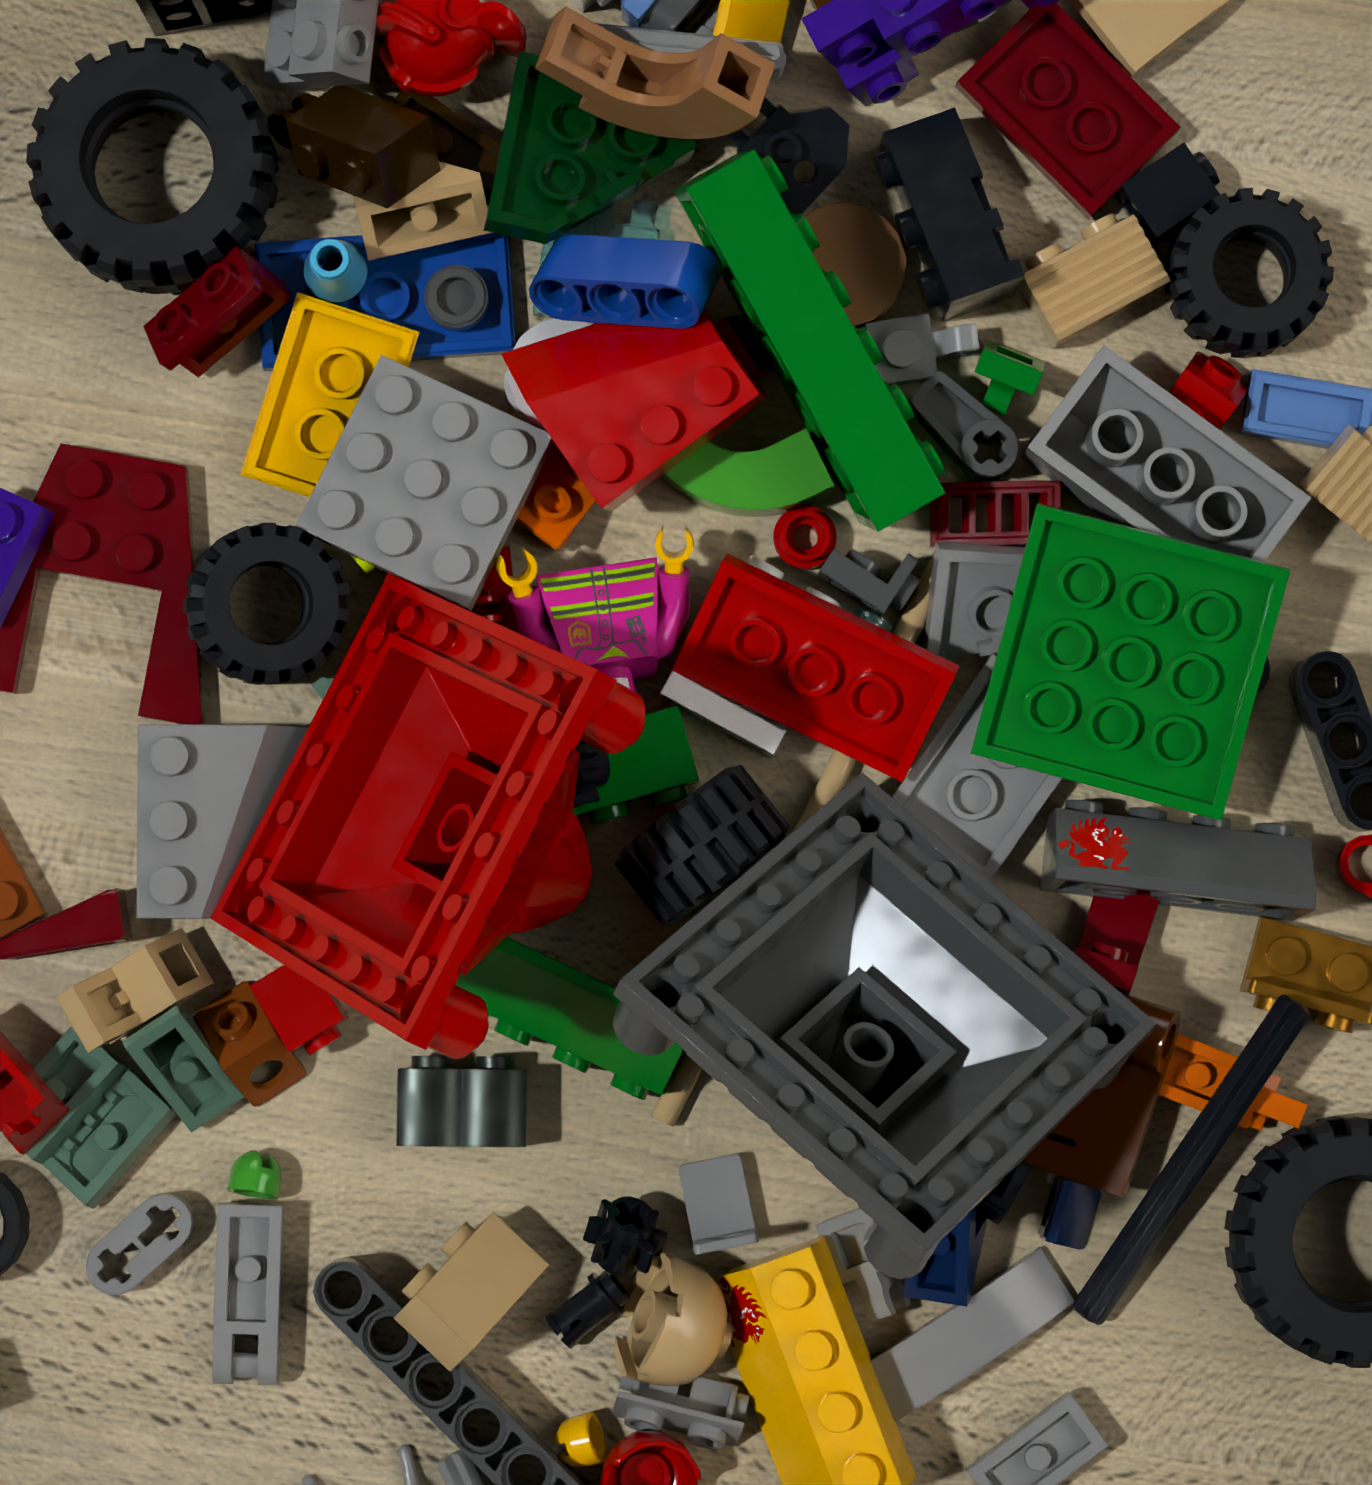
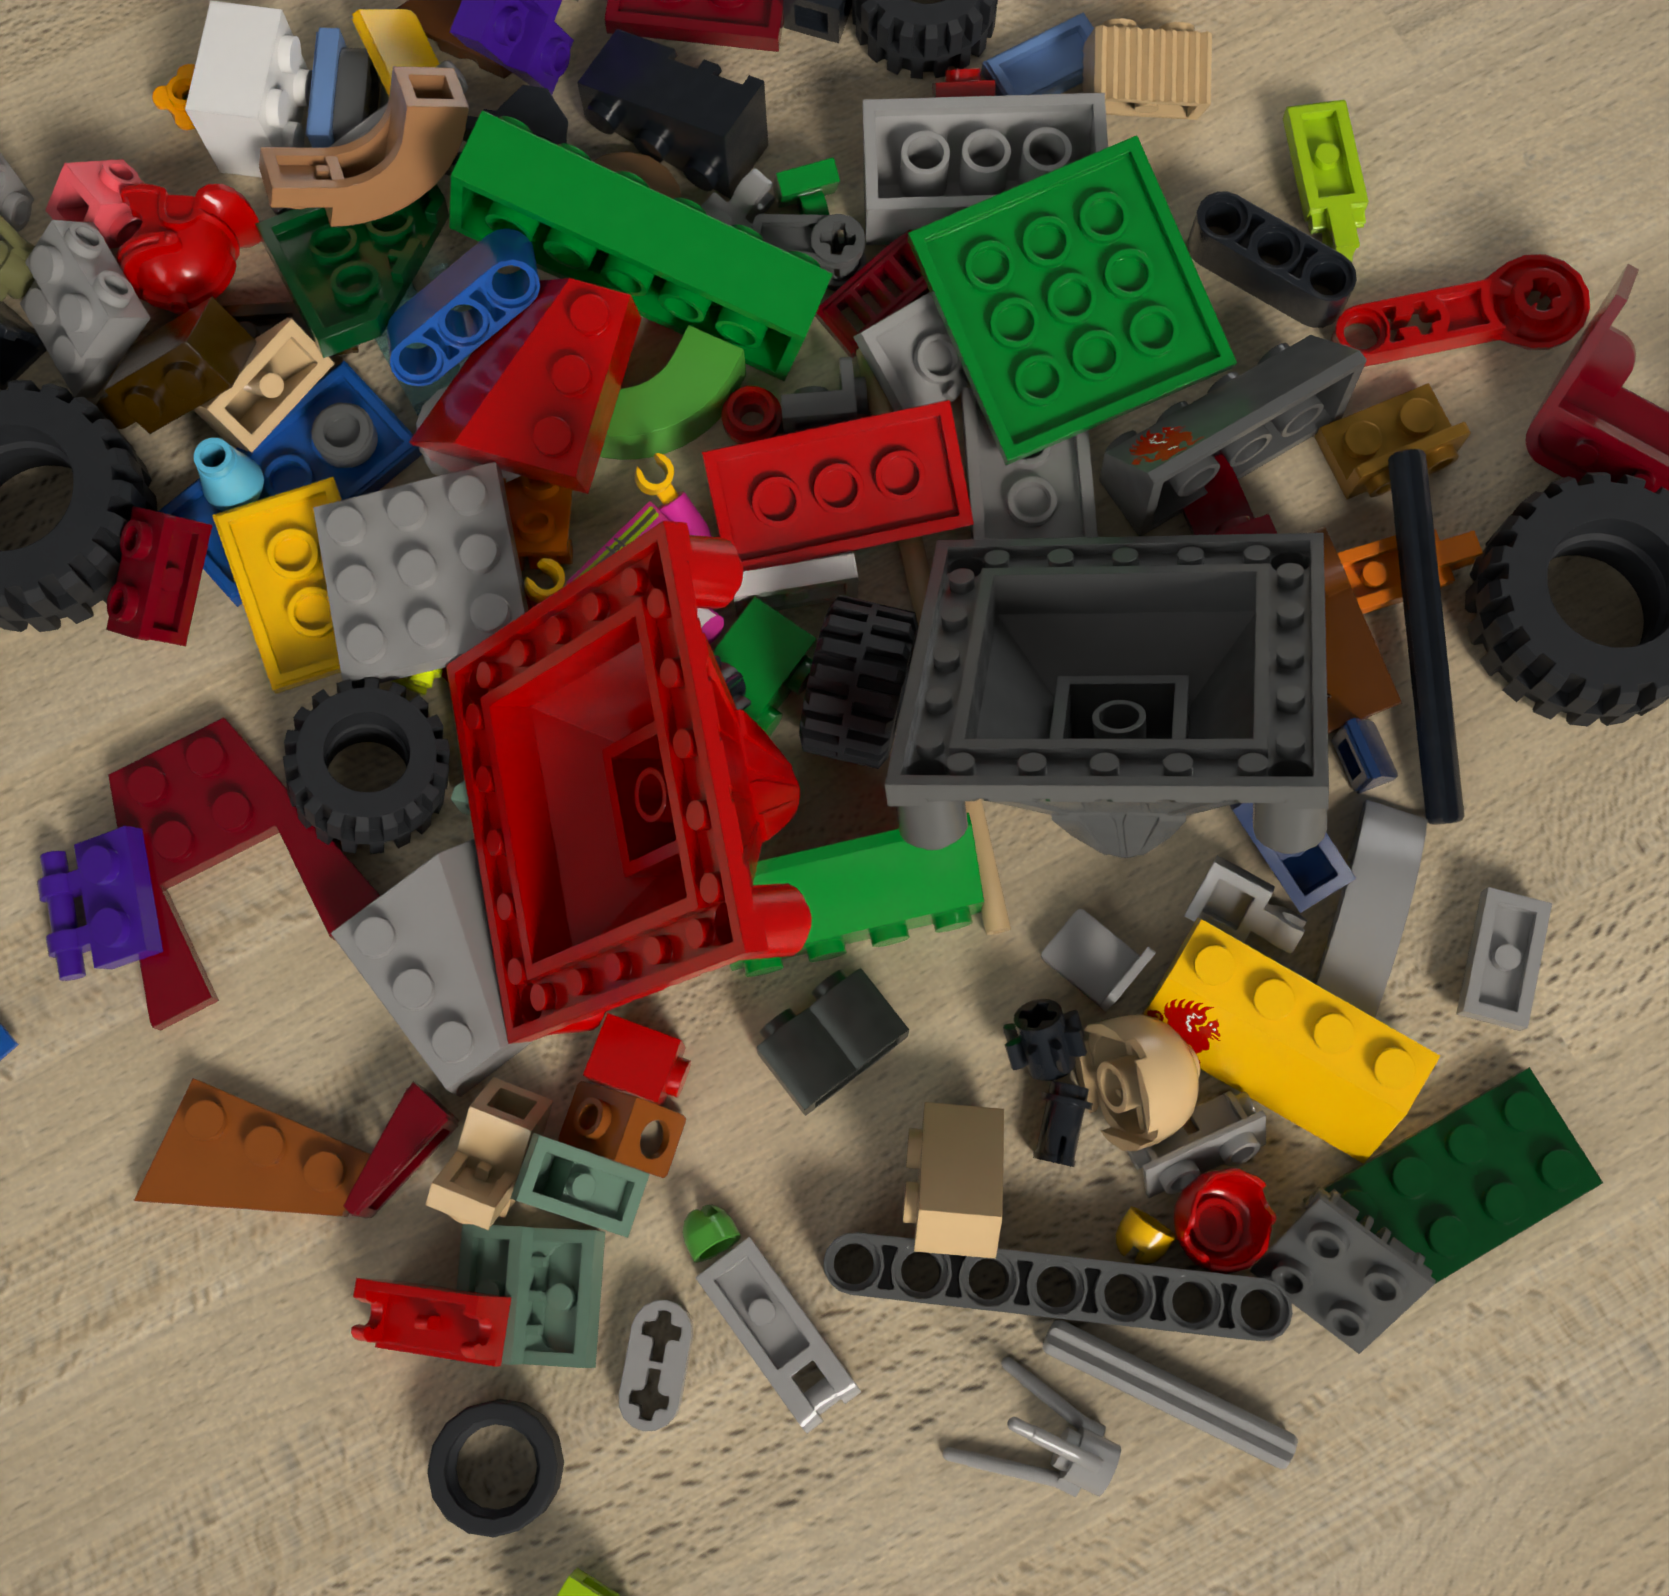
camera: 35 degrees left, 10 degrees down
(1092, 279) = (817, 81): tan brick -> none

